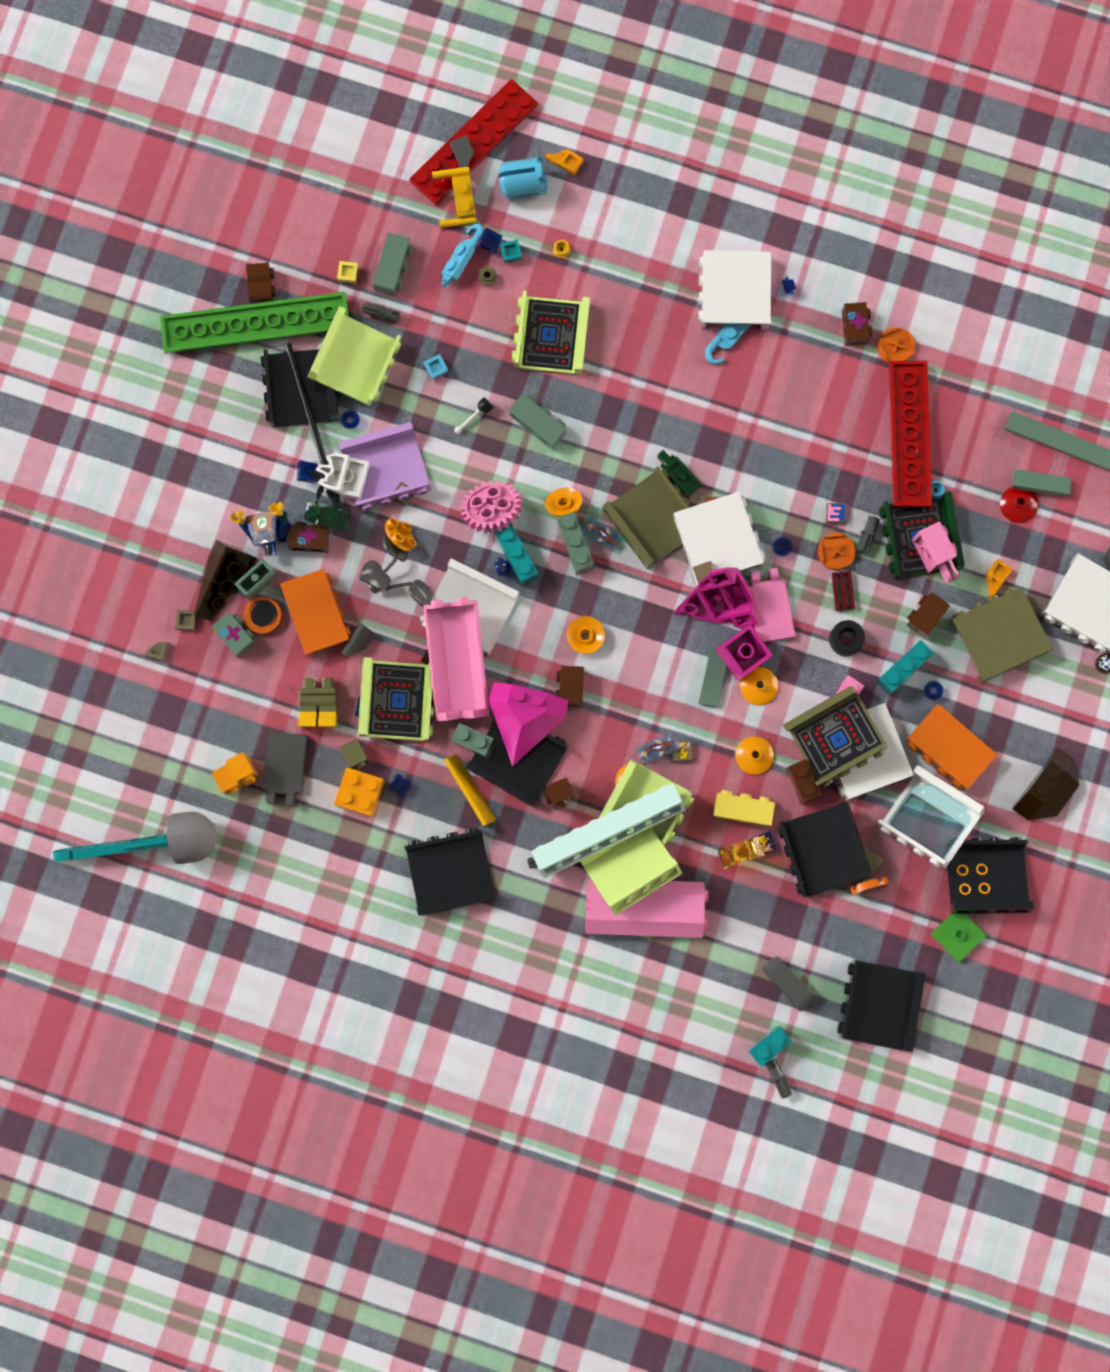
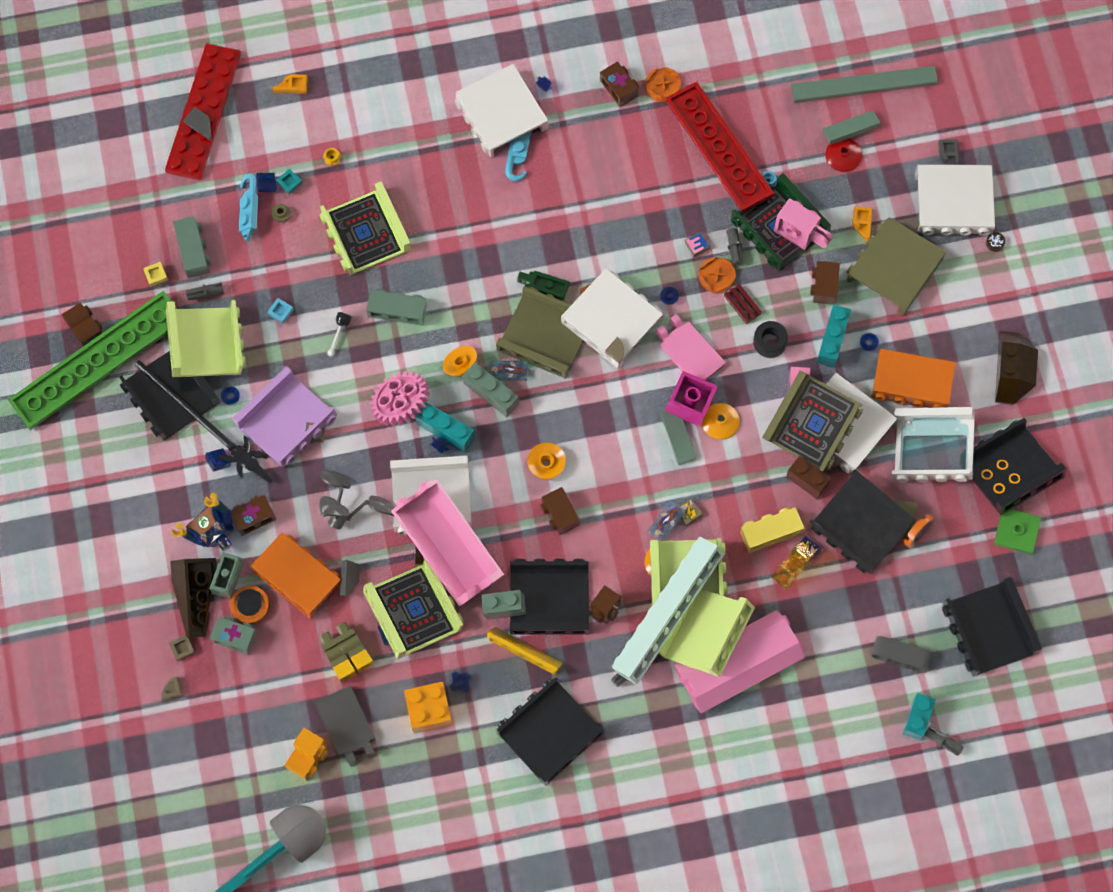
camera: 30 degrees left, 10 degrees down
(326, 515) = (258, 485): clear green slope -> none
(344, 475) = (253, 443): white plate -> none
(354, 755) = (404, 676): olive brick -> none
(400, 534) = (333, 465): light orange dish -> none
(462, 195) = (220, 157): yellow plate -> none
(523, 178) = (264, 116): medium azure cylinder -> none
(524, 716) = (535, 556): dark pink wedge -> none
(721, 598) = (644, 365): dark pink wedge -> none
(754, 765) = (748, 488): light orange dish -> none

